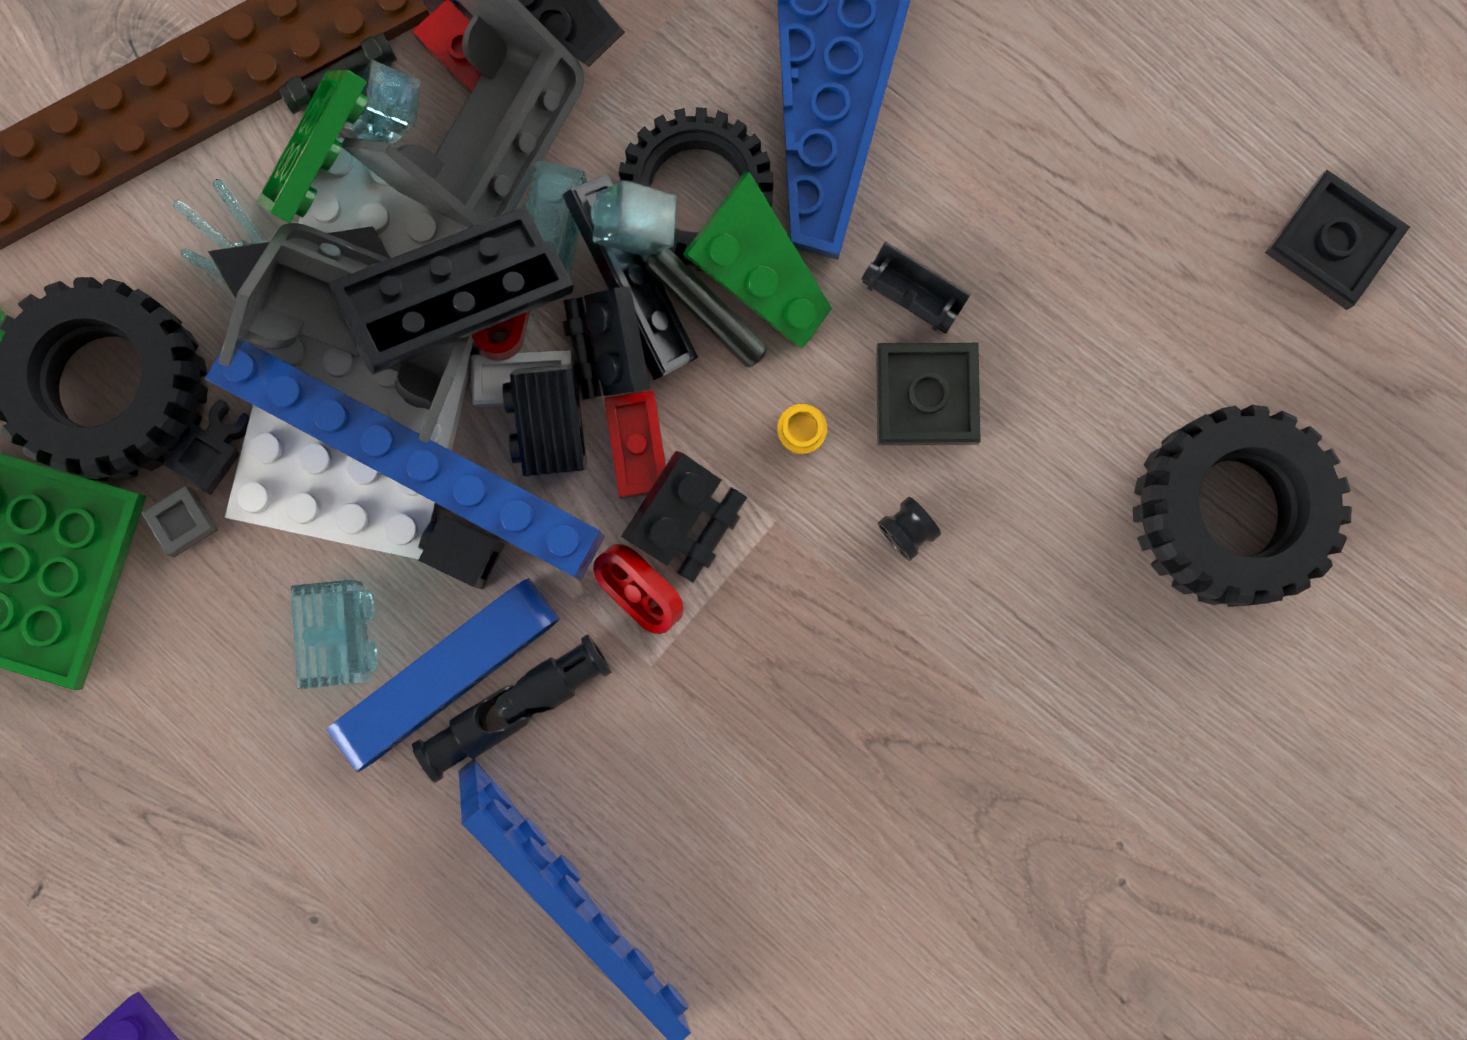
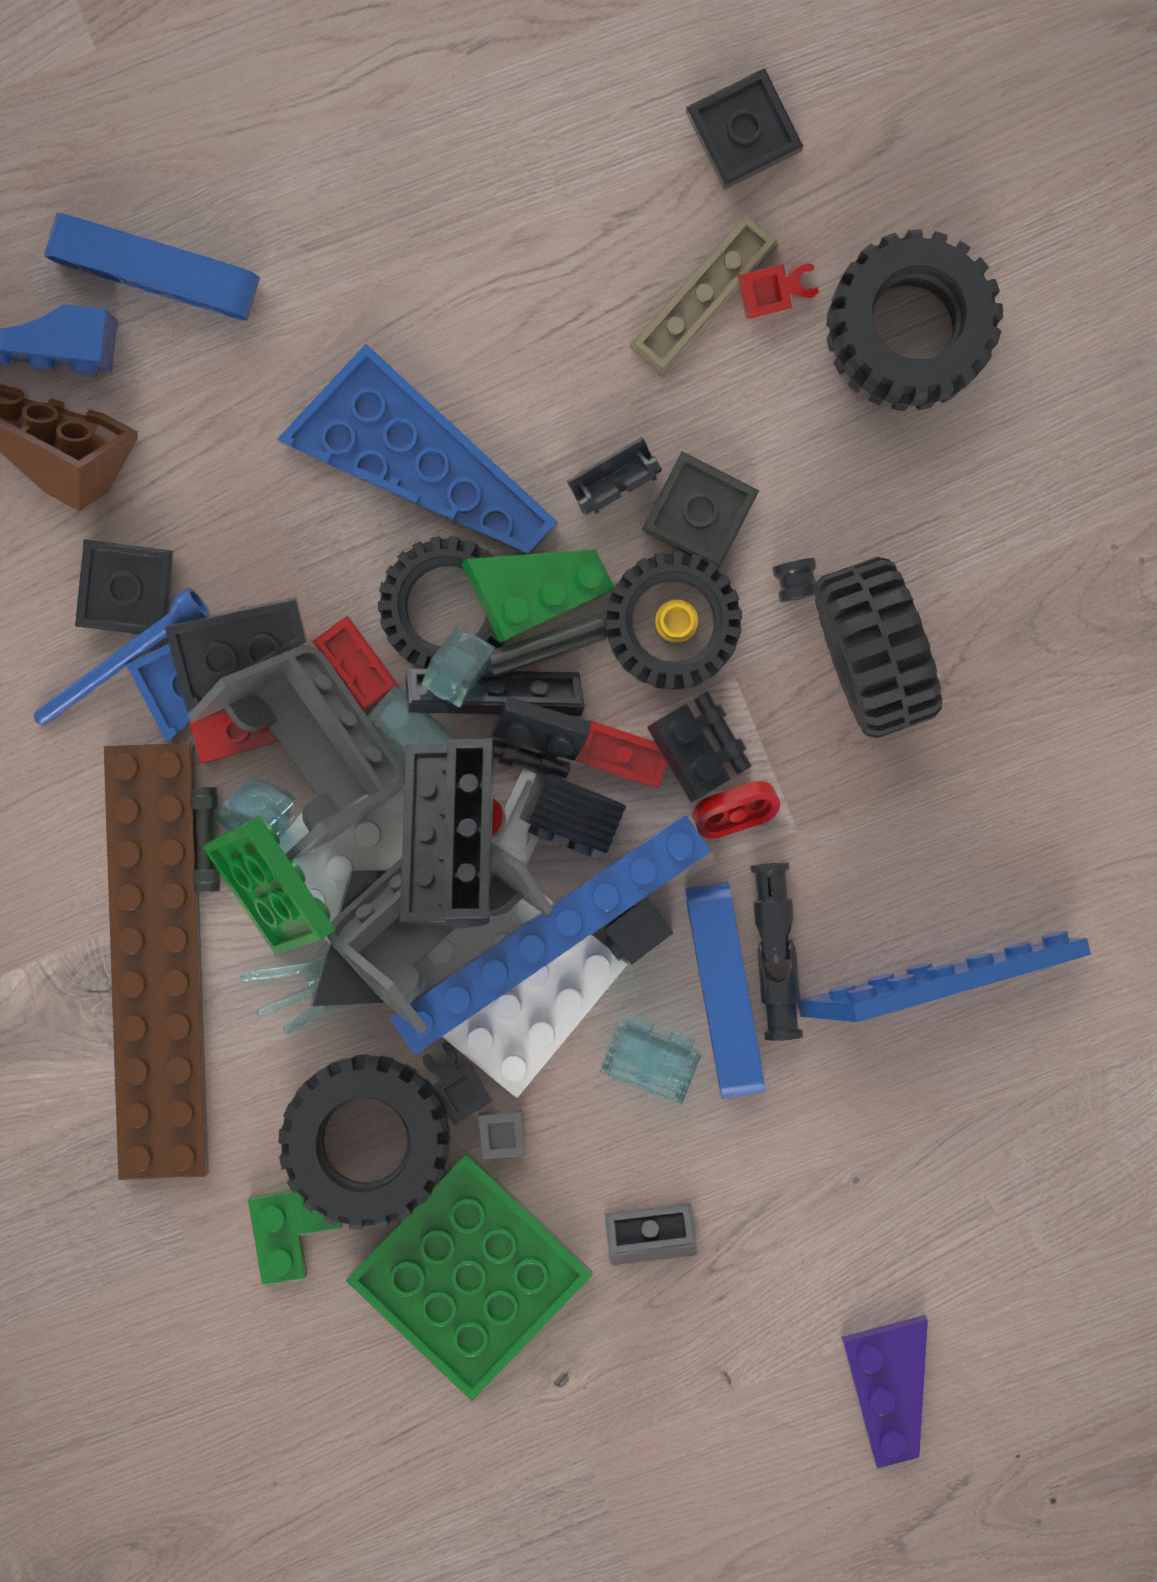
camera: 65 degrees left, 5 degrees up
(150, 730) = (650, 1234): none -> slope
(592, 127) = (356, 663): none -> red plate
(800, 364) = (684, 569): none -> black tyre
(881, 641) = (878, 647): none -> black tyre
(1149, 287) = (703, 294): none -> dark tan tile
(1190, 348) = (770, 289): none -> red plate

